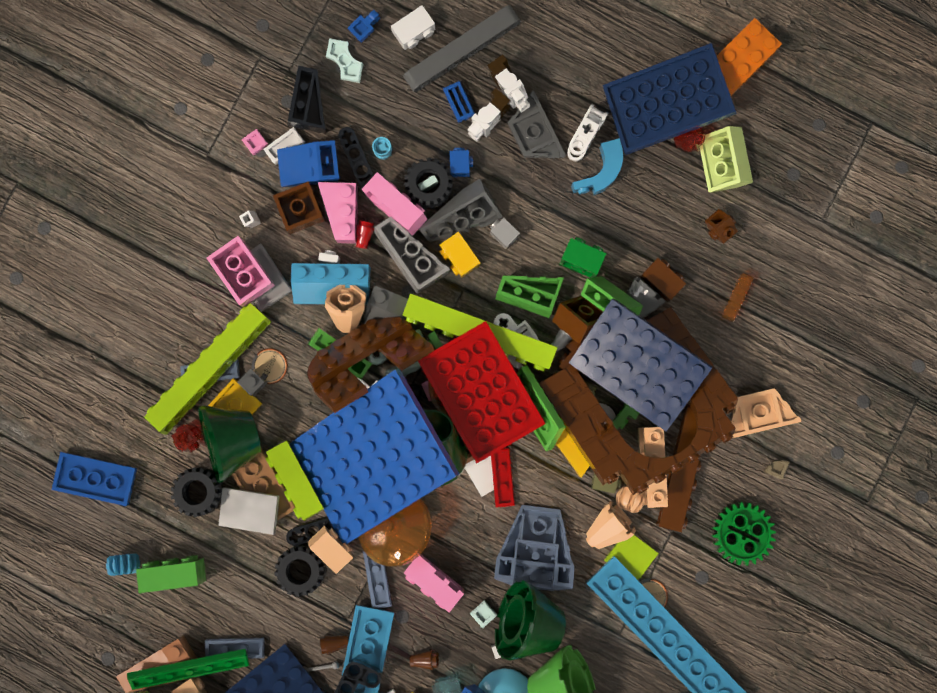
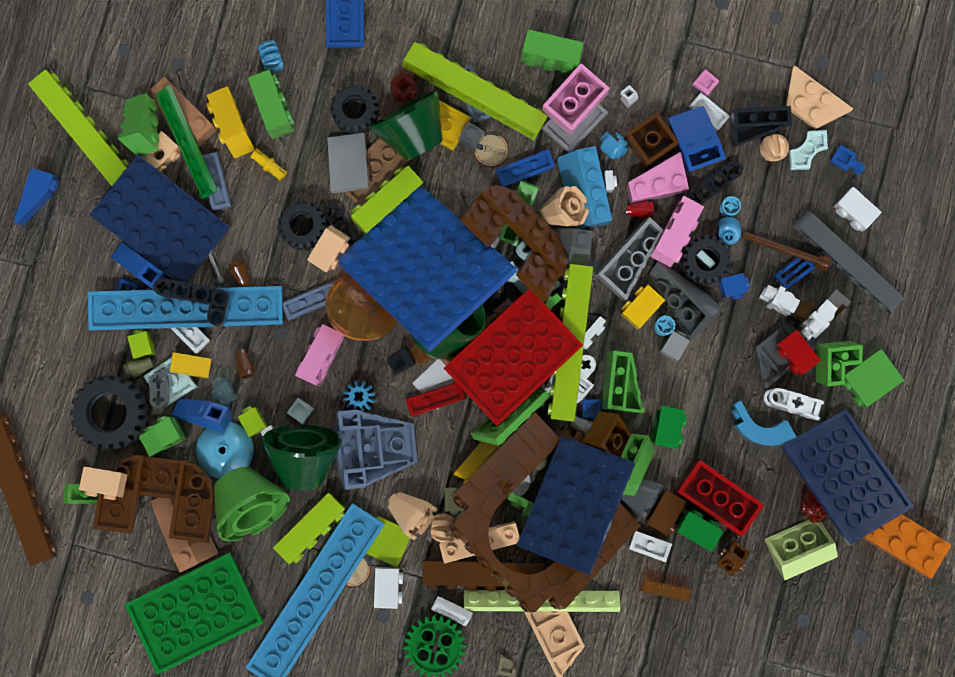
camera: 70 degrees right, 0 degrees up
(179, 620) = (229, 122): none -> yellow wedge
(188, 284) = (551, 52): none -> bright green brick
(231, 590) = (269, 164): none -> yellow pin
(294, 245) = (614, 145): none -> dark azure head
(297, 337) = (525, 168): none -> blue plate
(298, 44) = (813, 101): none -> light nougat wing
(334, 91) = (774, 147): none -> light nougat piece
(404, 154) = (728, 230): none -> dark azure head
(455, 74) = (821, 261): none -> reddish brown piece
(457, 484) = (419, 356): none -> clear orange plate
(458, 503) = (400, 362): none -> black panel
(470, 305) = (596, 329): none -> white plate
(482, 238) = (664, 326): none -> medium azure wheel
(483, 664) = (252, 421): none -> lime brick
(485, 545) = (352, 396): none -> dark azure gear
(539, 117) = (797, 353): none -> red brick
(546, 328) = (590, 408): none -> blue tile
(552, 85) = (834, 358): none -> bright green brick
(579, 54) = (871, 379): none -> bright green brick
(601, 630) = (306, 531): none -> lime brick
(661, 225) = (719, 498): none -> red brick
(676, 567) = (387, 587): none -> white brick
(689, 251) = (698, 530): none -> green brick
(692, 302) = (650, 546): none -> white plate
(712, 509) = (452, 611): none -> white tile
(713, 461) = (500, 601): none -> yellowish green plate

